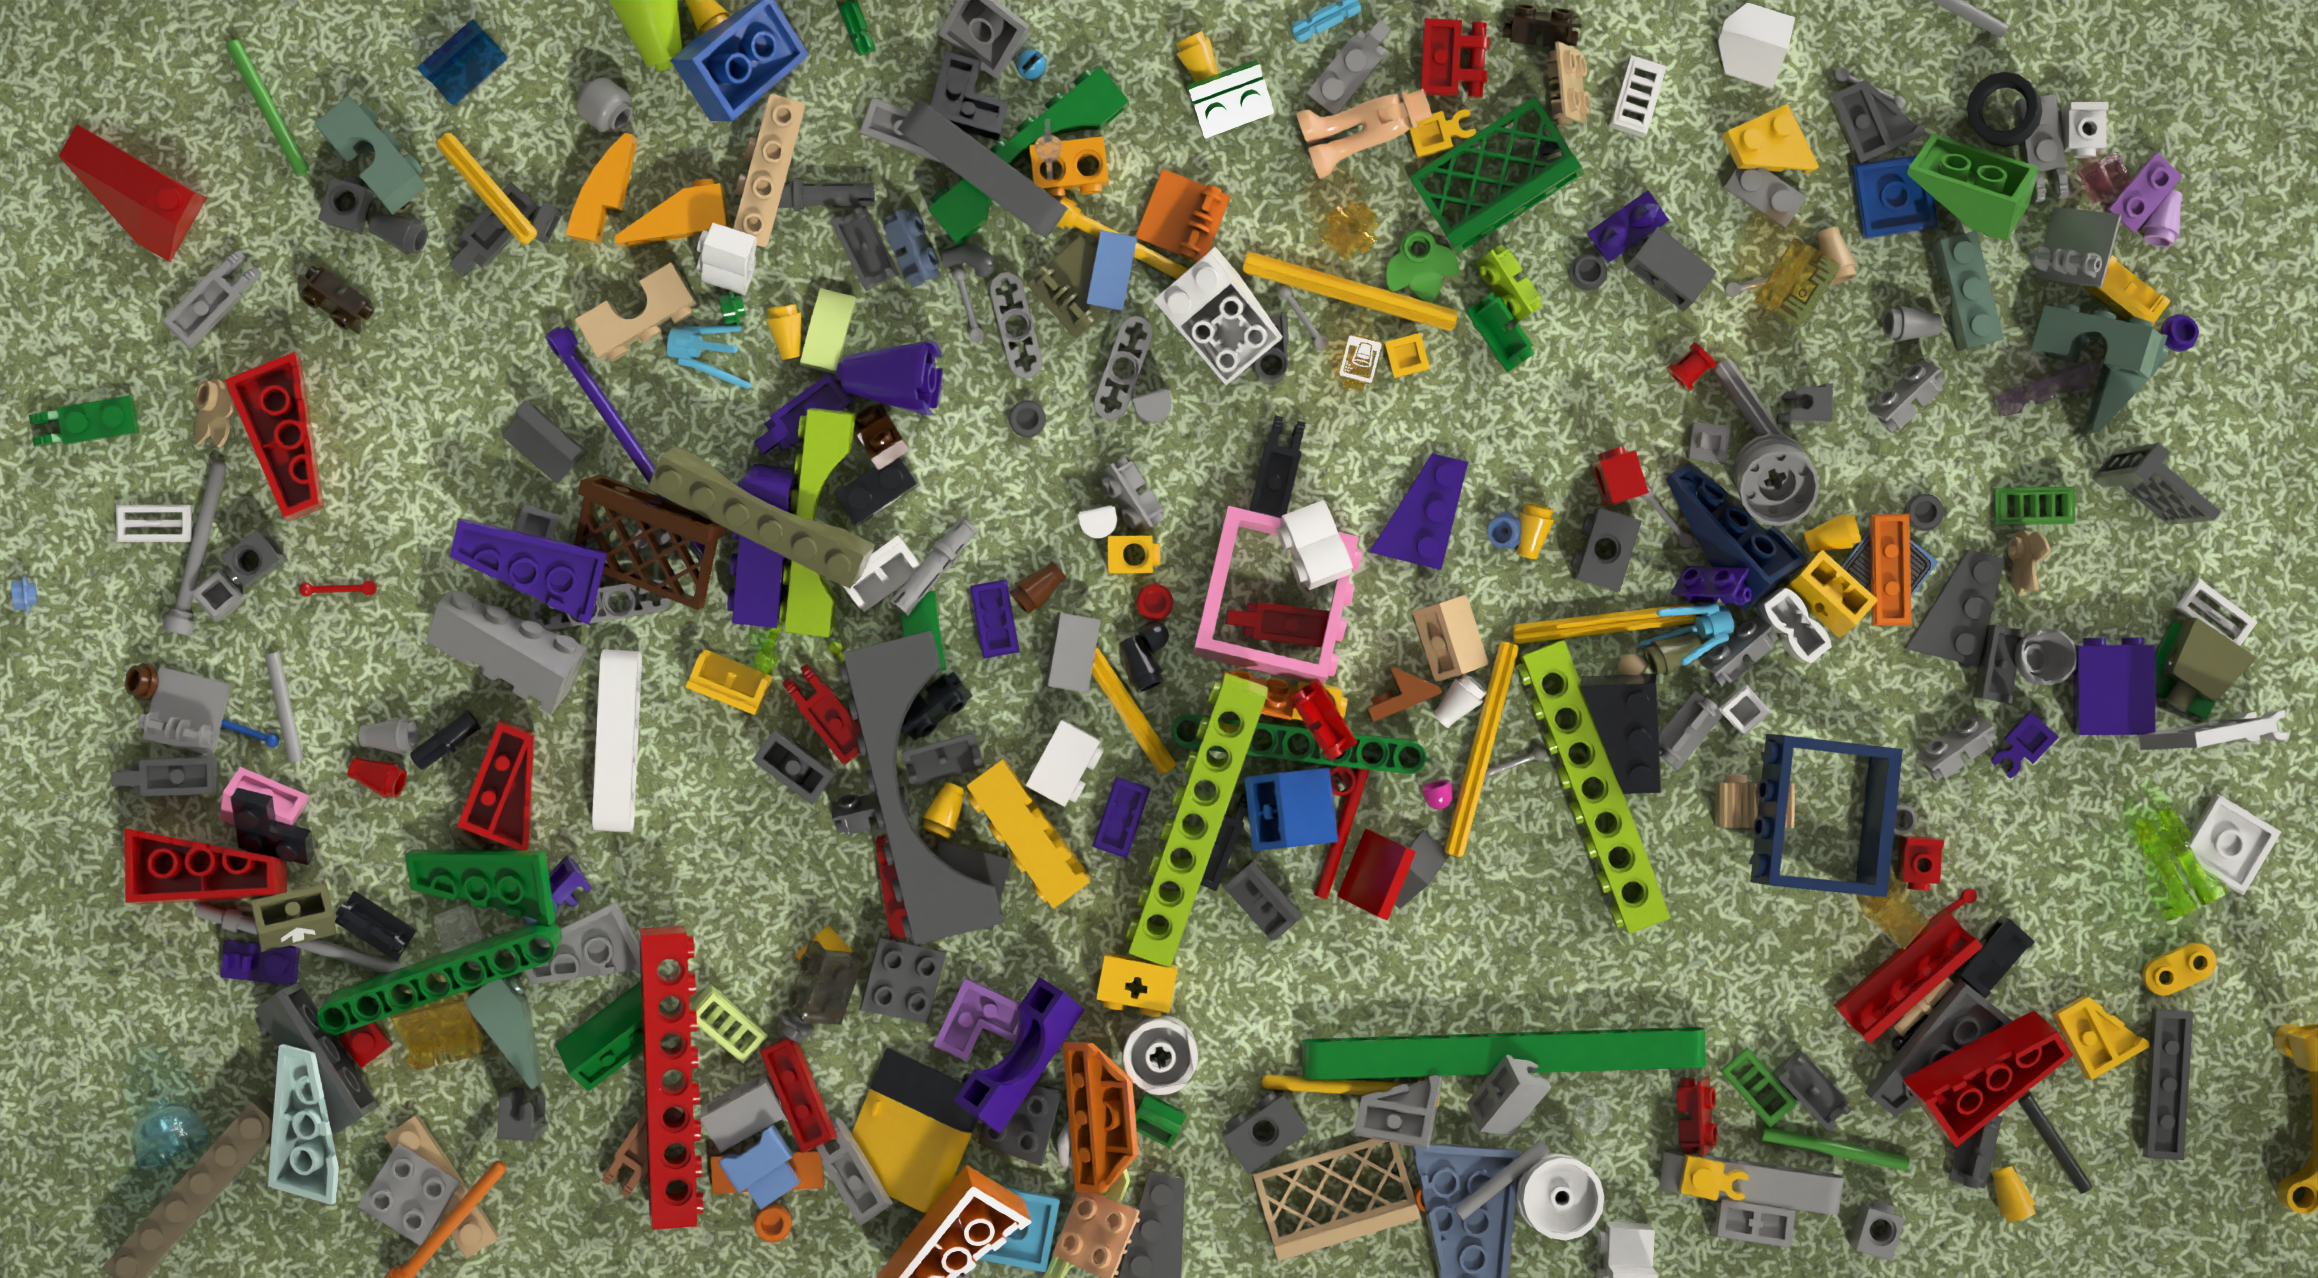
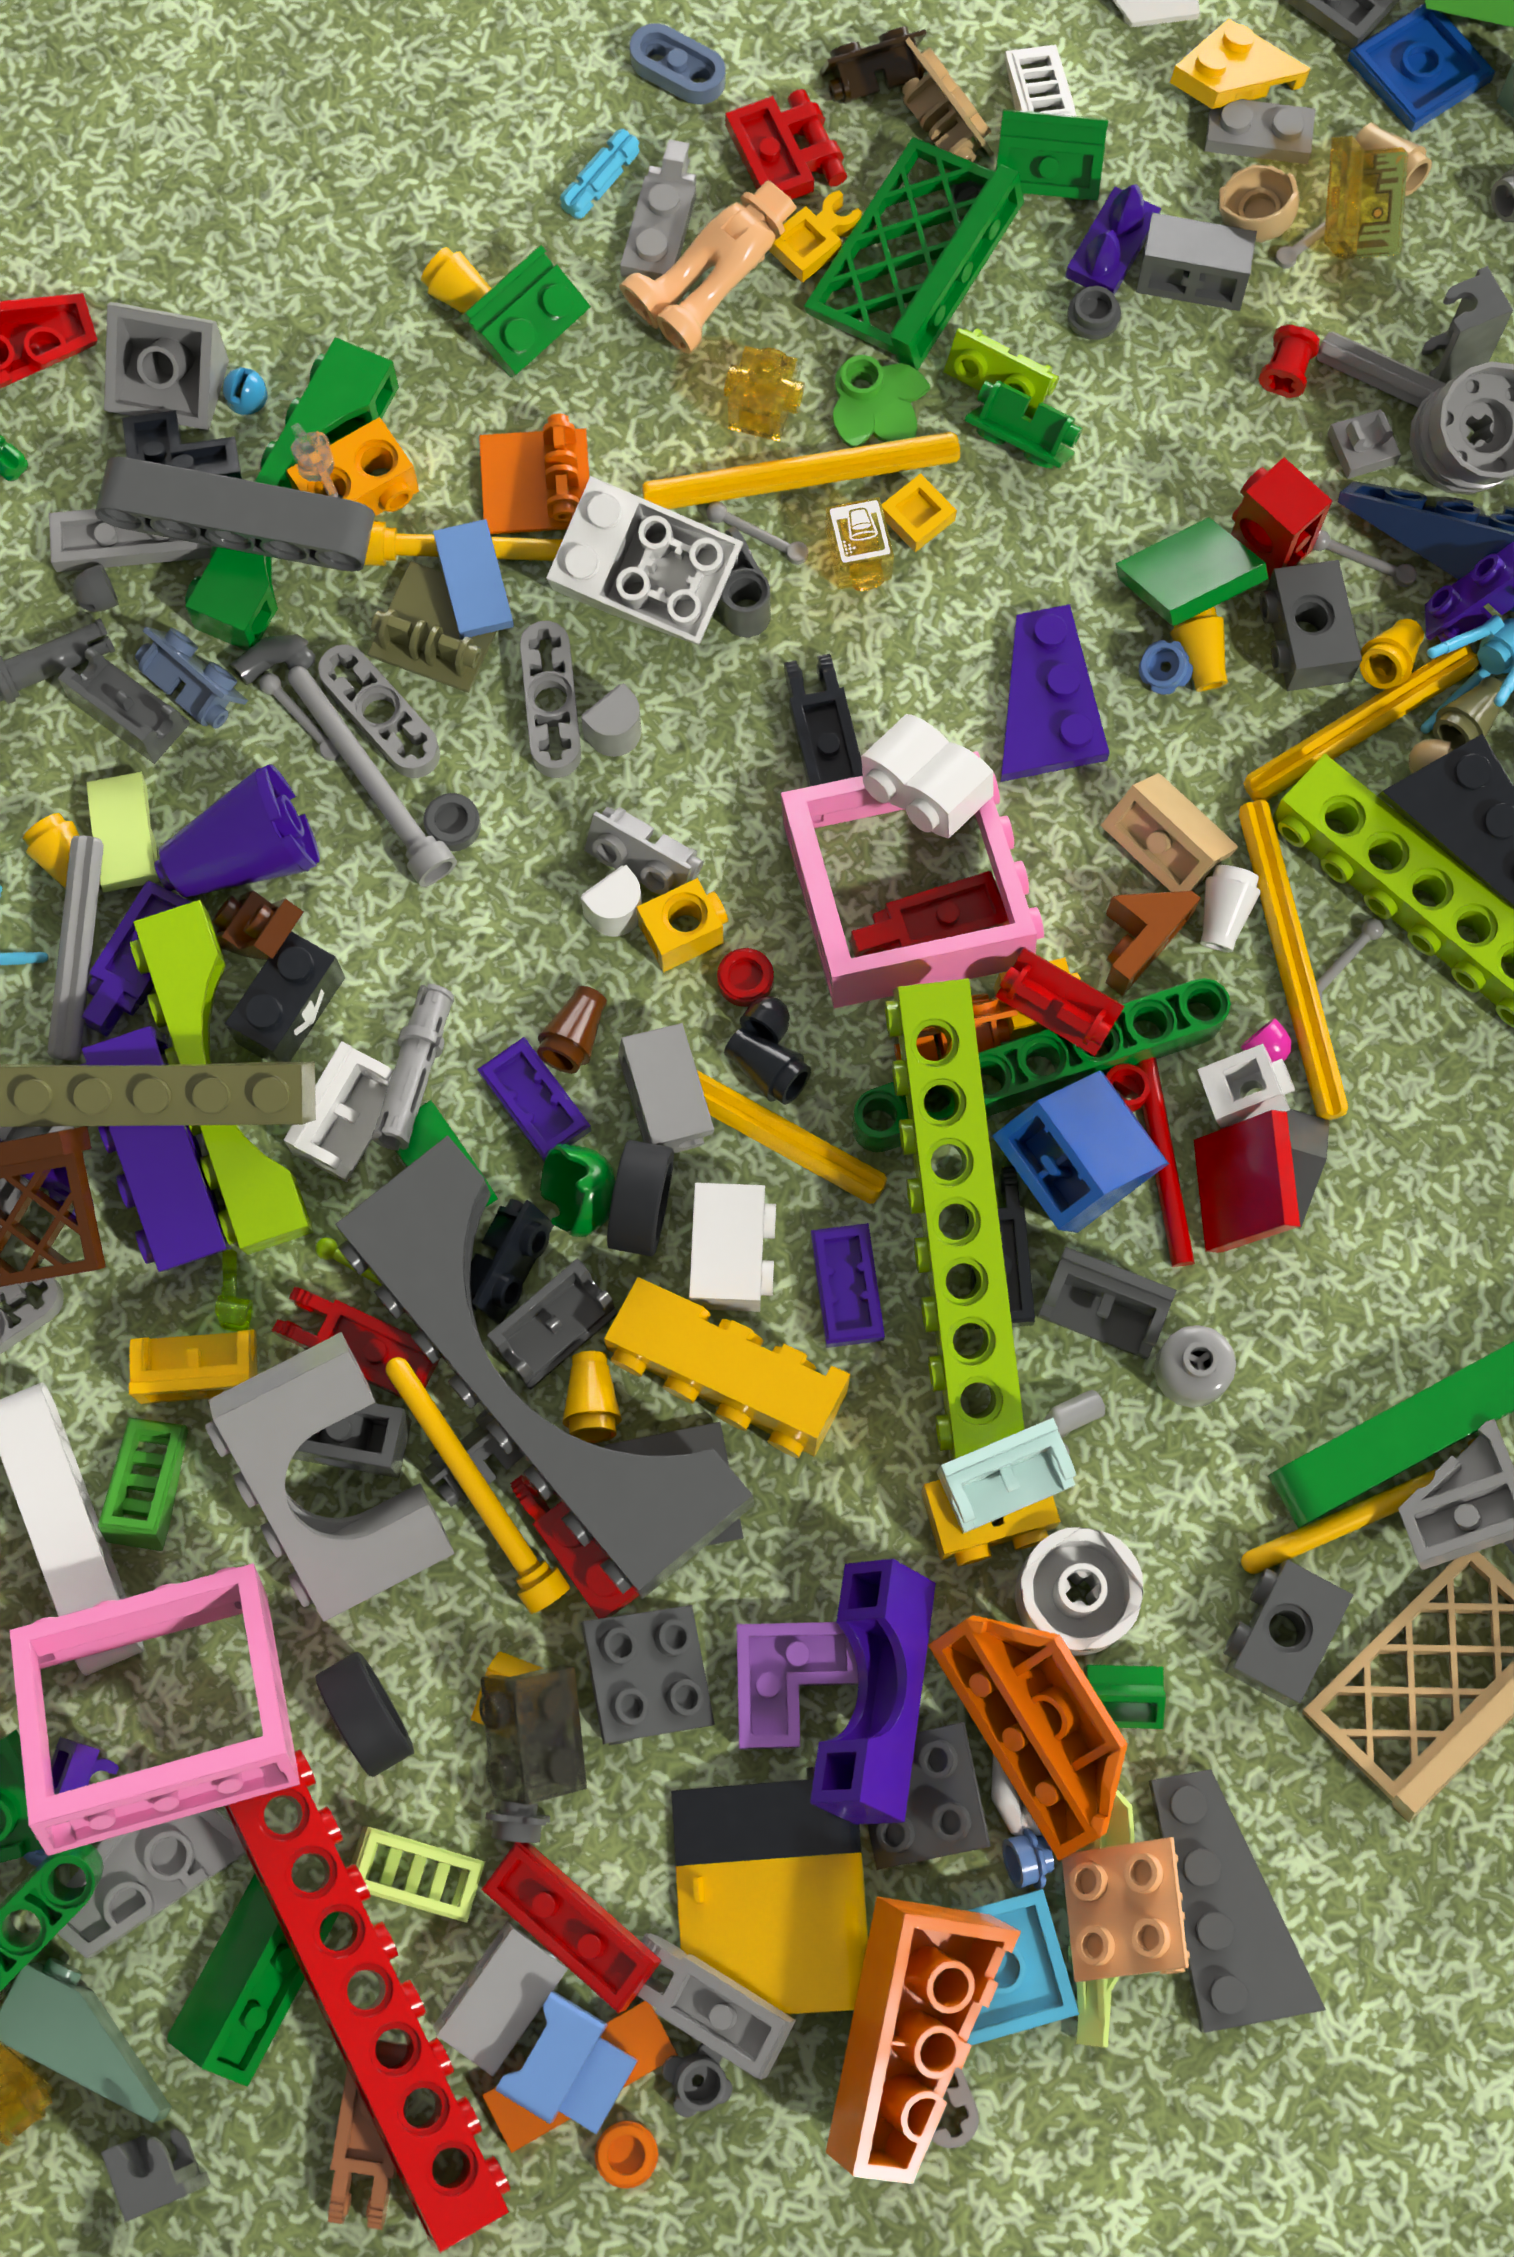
camera: 20 degrees left, 15 degrees down
(612, 934) = (170, 1788): none -> bright pink window
(644, 752) = (154, 1531): none -> bright green slope
(737, 930) = (364, 1714): none -> black tyre
(758, 834) = (333, 1558): none -> light grey arch
(768, 395) = (75, 948): none -> light grey axle
(824, 1214) = (691, 2098): none -> dark grey plate
(866, 901) = (536, 1579): none -> yellow piece
(879, 160) = (94, 590): none -> dark grey hinge
(997, 688) = (580, 1186): none -> green hair
(1001, 435) = (427, 858): none -> light grey piece
(1026, 713) = (640, 1198): none -> black tyre
(1060, 1179) = (1027, 1859): none -> medium blue plate
(1150, 975) = (1007, 1475): none -> light aqua hinge
(1203, 953) = (1076, 1412): none -> light grey arm
(1283, 952) = (1181, 1380): none -> light grey head
(1396, 812) = (1231, 1078): none -> white brick
(1551, 480) = (1191, 571): none -> tile
(1617, 150) = (1054, 152): none -> green plate
(1643, 593) = (1391, 655): none -> yellow cone
(1731, 248) = (1260, 201): none -> tan hair

